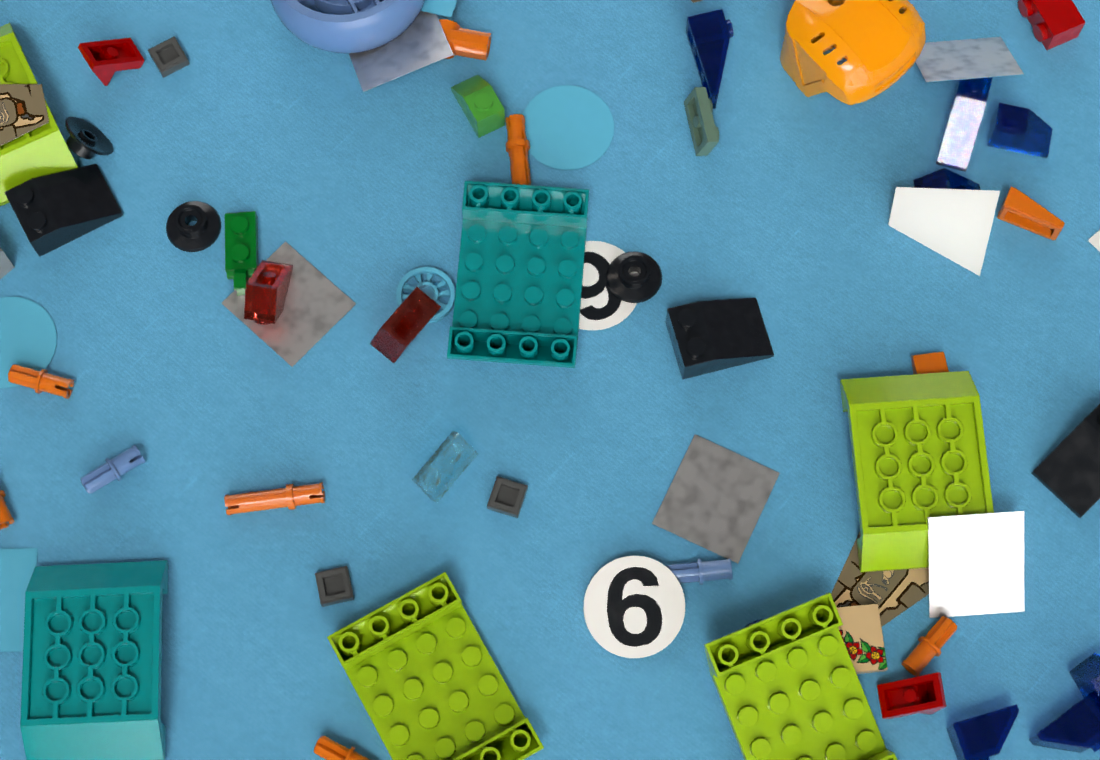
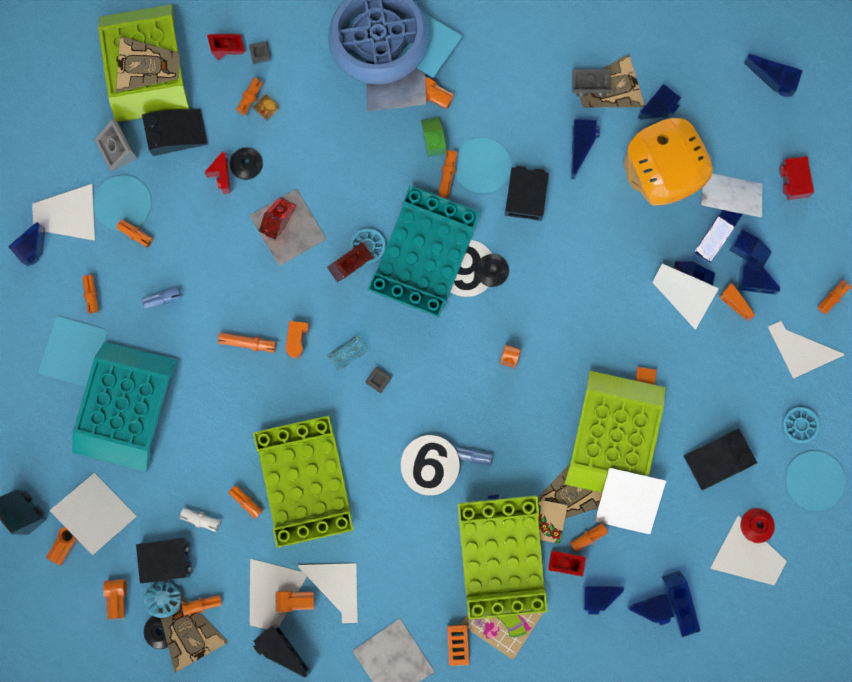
camera: 20 degrees right, 10 degrees up
(86, 139) = (198, 92): black piece -> none
(154, 245) = (220, 168): none -> red slope
(170, 124) = (249, 96): none -> orange pin
(201, 134) = (266, 107): none -> clear orange tile
(241, 248) = (269, 186): green hinge -> none
(334, 586) = (266, 402): dark grey tile -> none
(351, 469) = (295, 337): none -> orange leg
(651, 146) = (526, 193): none -> black brick
(701, 122) = (561, 188): sand green plate -> none
(707, 395) = (510, 356): none -> orange leg
(716, 498) = (497, 416): flat silver sticker -> none
(717, 335) = (529, 321): black slope -> none
(1047, 173) = (756, 279): none -> clear blue slope

